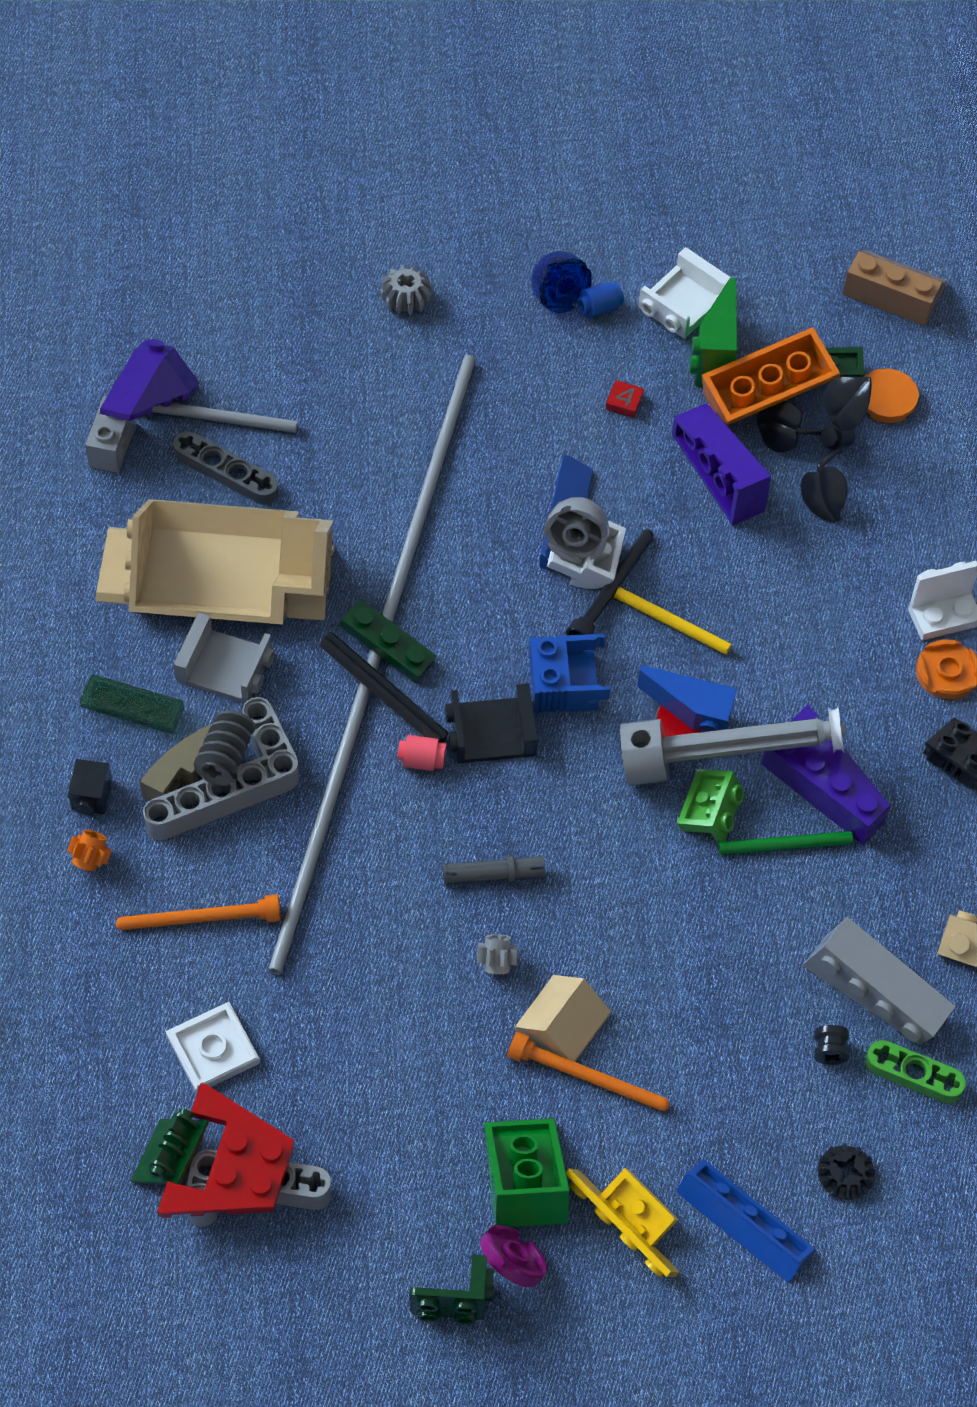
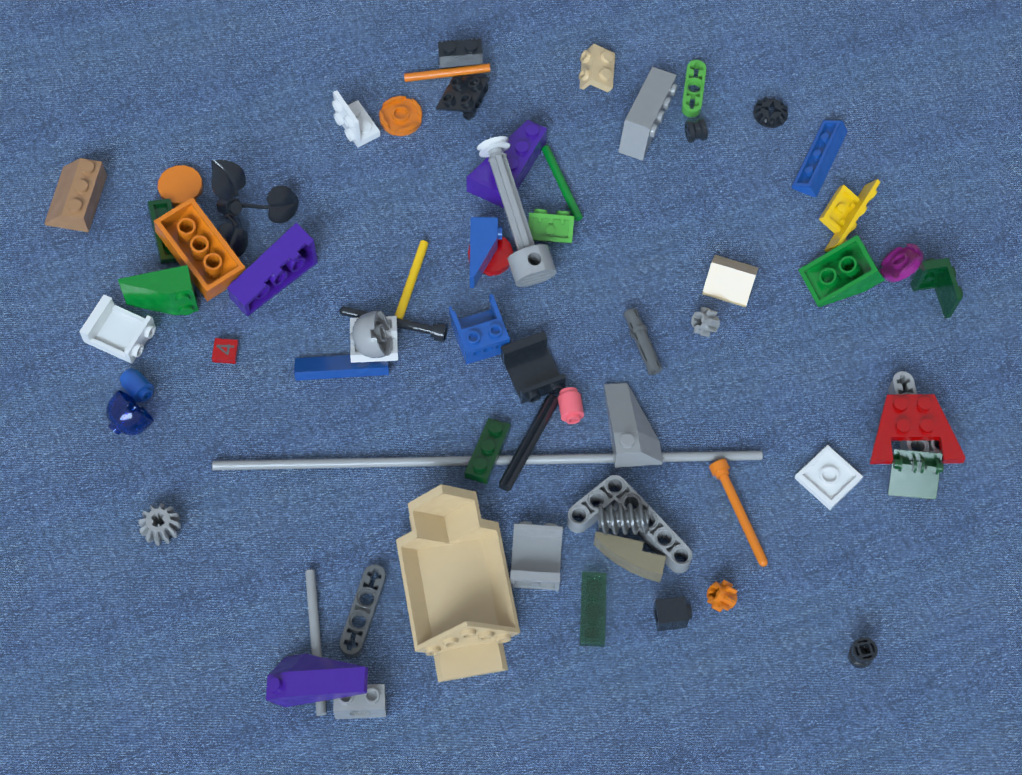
camera: 105 degrees left, 5 degrees up
(359, 808) = (630, 431): none -> light grey wedge
(525, 1049) = (761, 295): orange piece -> none

